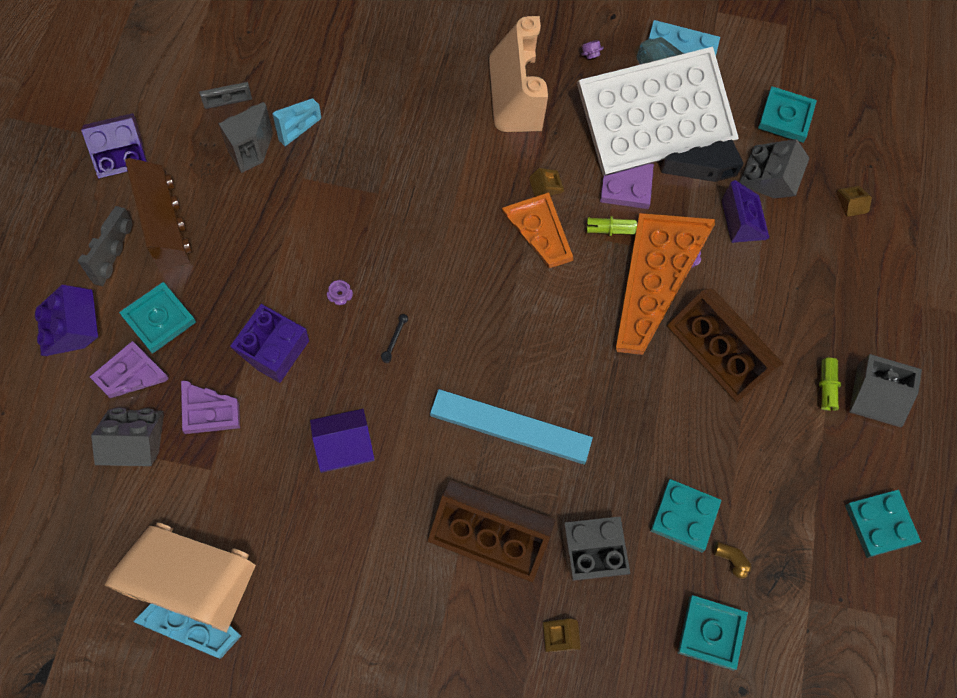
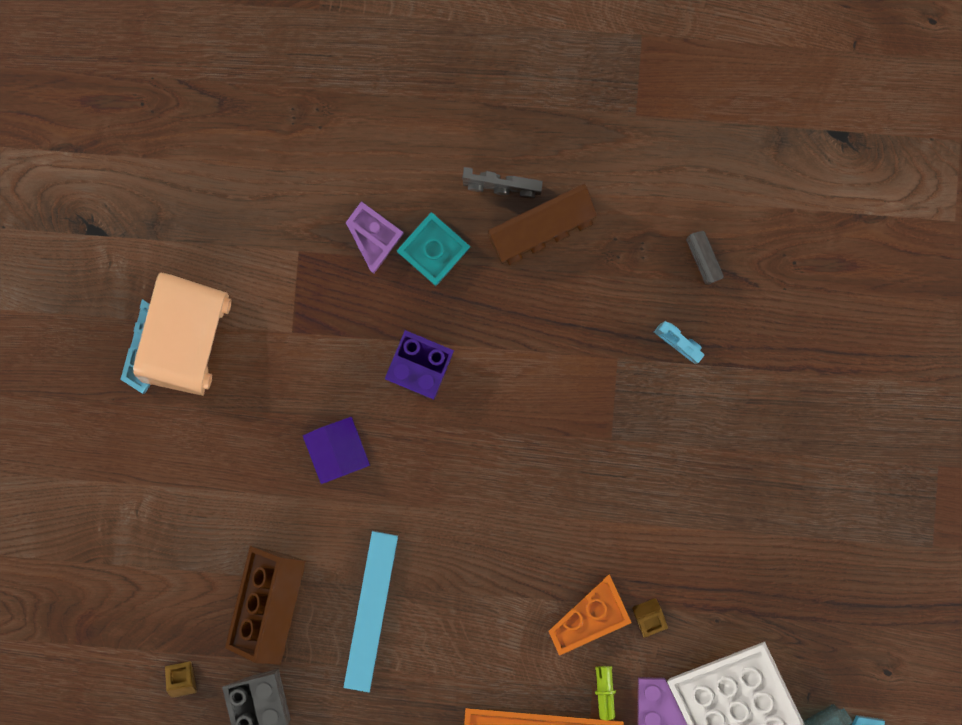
camera: 95 degrees right, 20 degrees up
(66, 320) = (415, 163): dark purple slope -> none
(112, 143) = (620, 158): slope -> none
(128, 437) = (308, 252): dark grey slope -> none
(207, 411) = (346, 318): medium lavender wing -> none
(248, 136) = (644, 297): dark grey slope -> none
(339, 286) = (494, 423): medium lavender plate -> none
(386, 356) = (427, 479): black hinge -> none
(517, 99) = (764, 564): light nougat windscreen -> none
(591, 49) = (830, 652): medium lavender plate -> none

